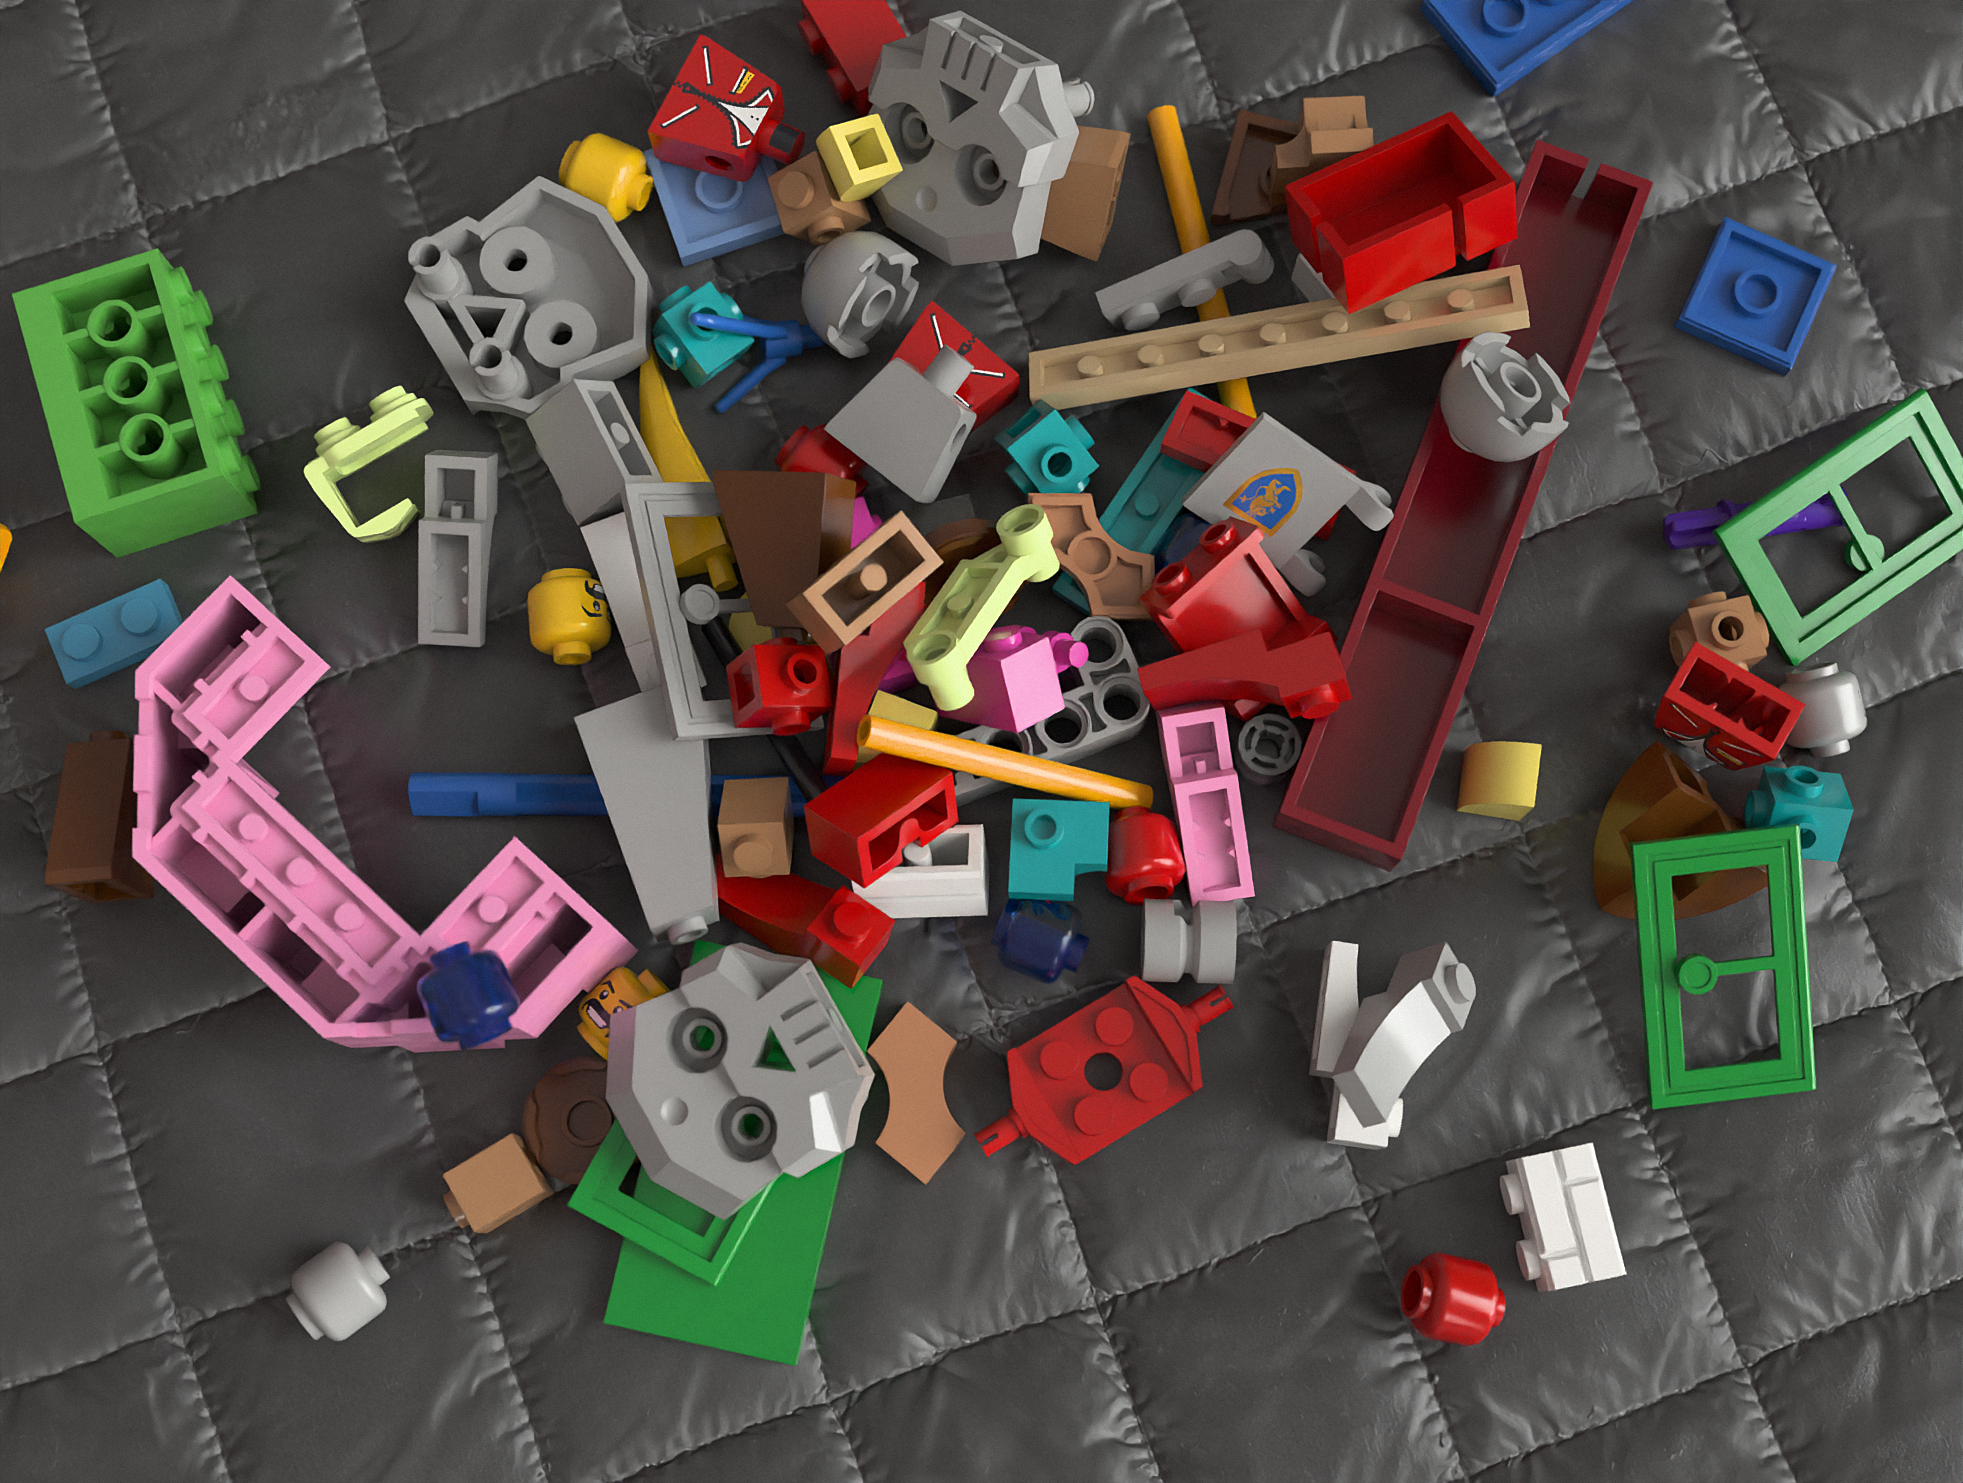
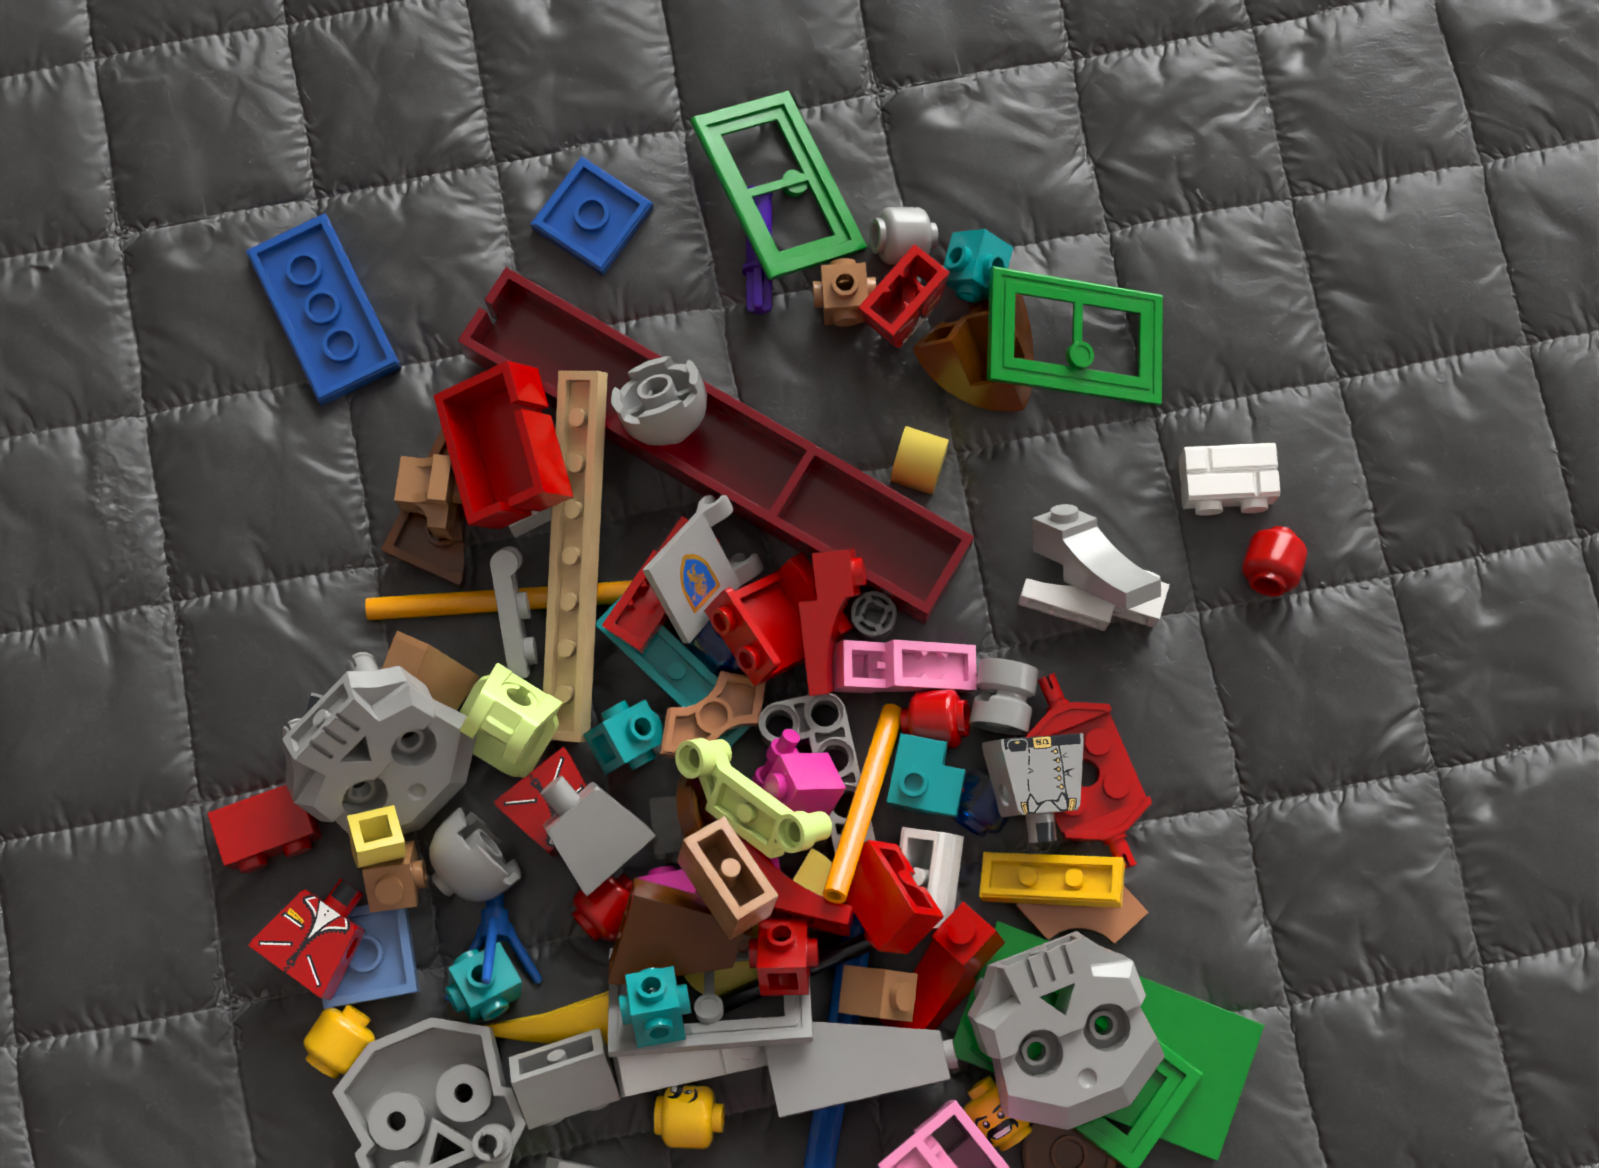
camera: 80 degrees left, 0 degrees up
(688, 528) = (655, 1006): none -> teal brick
(947, 1044) = (1052, 879): none -> yellow tile
(1040, 297) = (510, 721): none -> yellowish green piece
(1075, 994) = (1036, 779): none -> light grey torso

